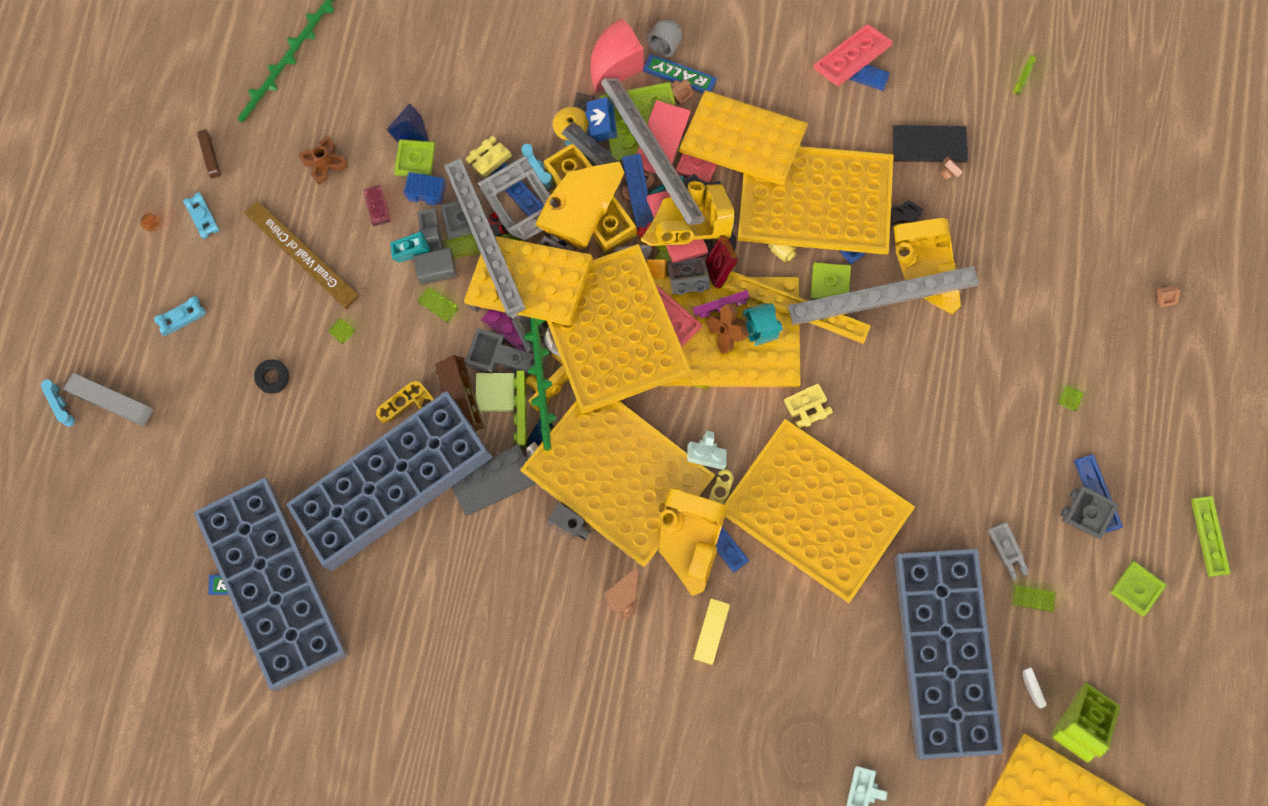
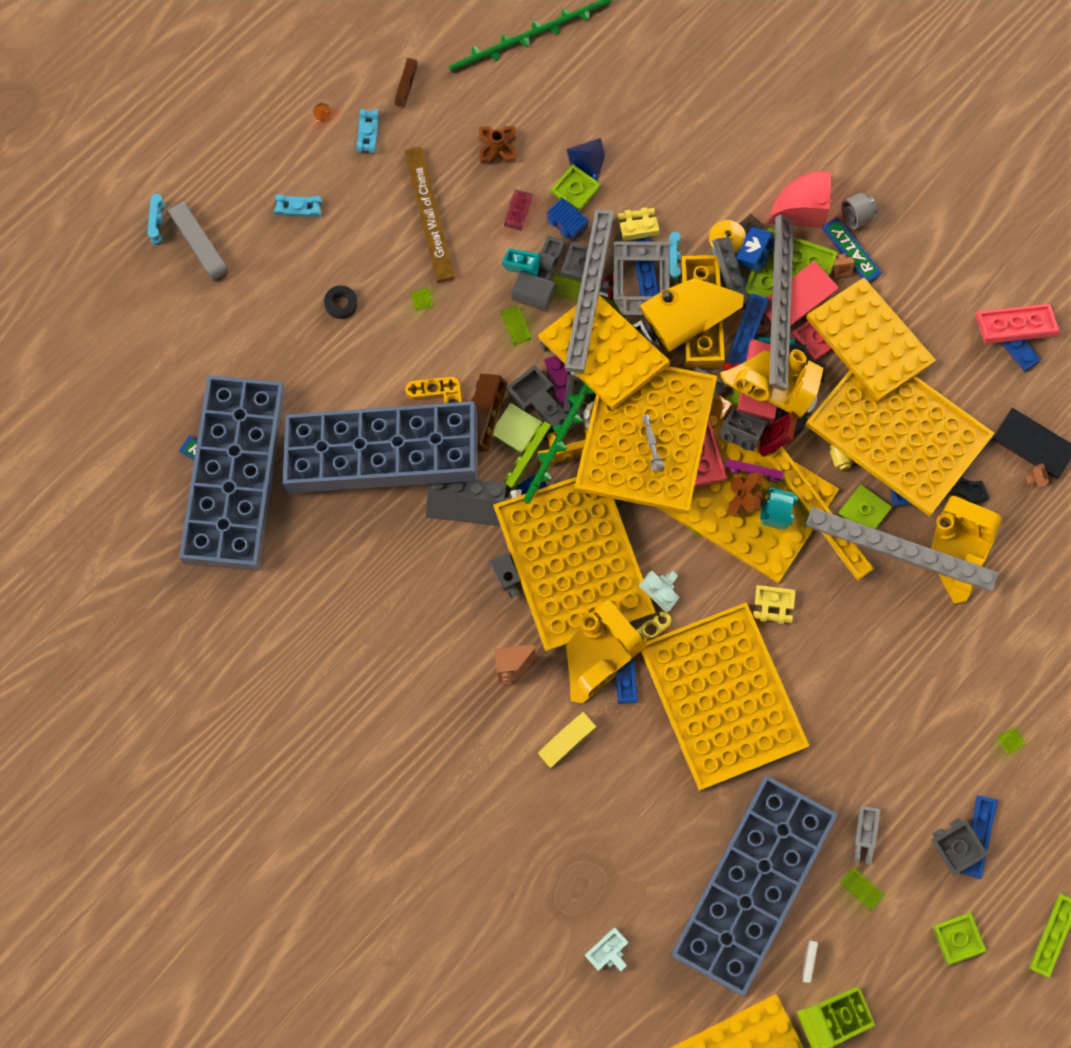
camera: 30 degrees right, 0 degrees up
(638, 347) = (656, 463): none -> light grey piece

